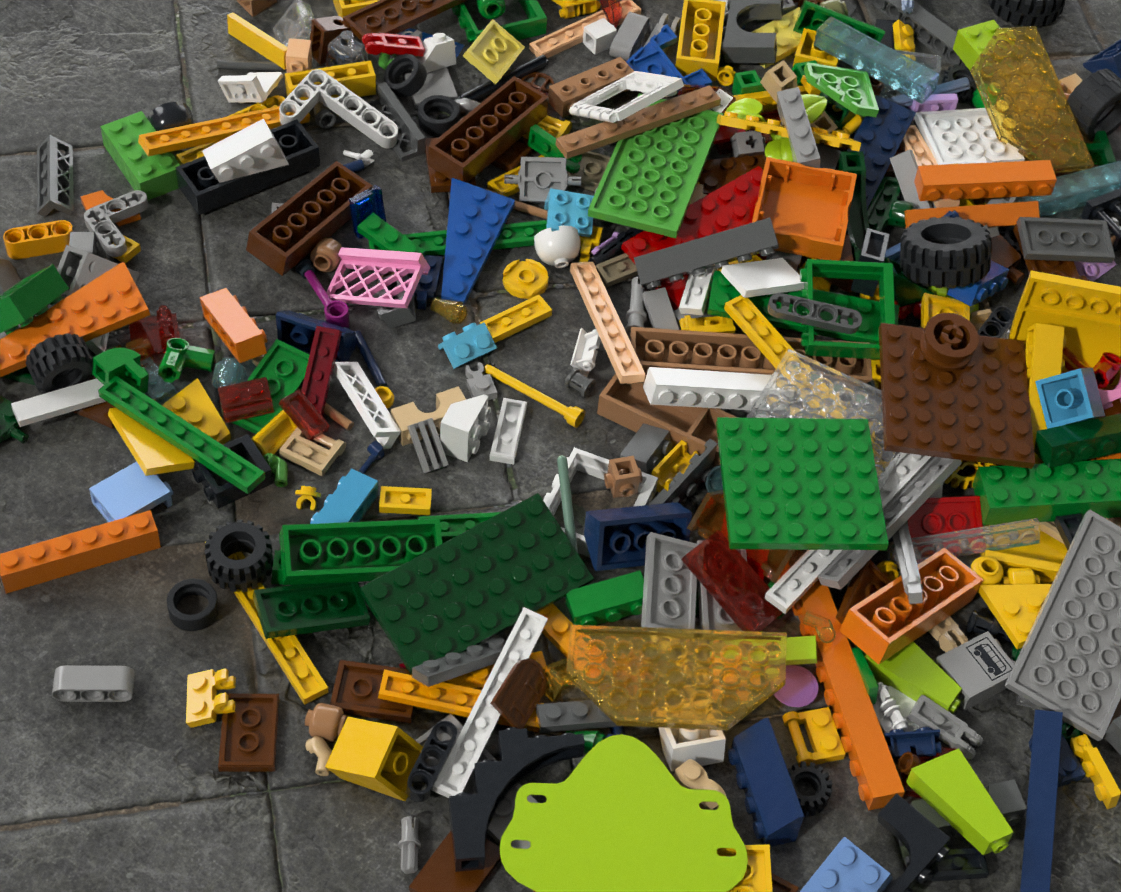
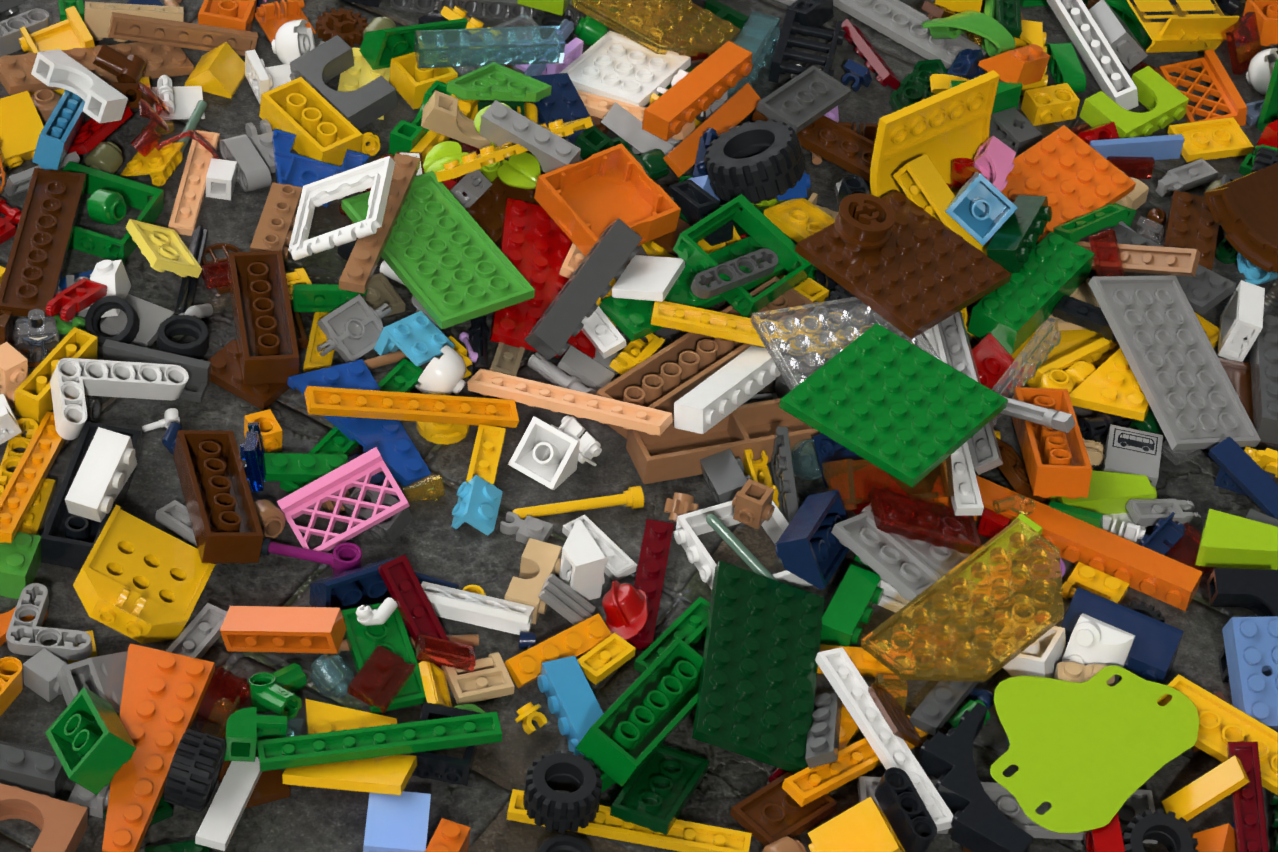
camera: 50 degrees left, 10 degrees down
(174, 254) = (141, 579): none -> yellow hinge
(186, 294) = (200, 633): none -> light grey plate
(289, 358) = (368, 616): none -> white arm
(386, 471) = (570, 642): none -> light orange plate
(402, 203) = (270, 429): none -> light orange brick
(458, 477) = (625, 609): none -> red piece
(500, 250) = (410, 406): none -> light orange plate
(504, 478) = (651, 575): none -> dark red plate
(552, 346) = (546, 454): none -> white slope
(580, 382) = (604, 469): dark grey bush -> none
(592, 443) = (679, 505): none -> medium nougat gear
(737, 773) = (1098, 644): none -> white slope
(796, 626) = (992, 523): none -> red tile
(907, 762) = (1175, 554): reddish brown hinge -> none

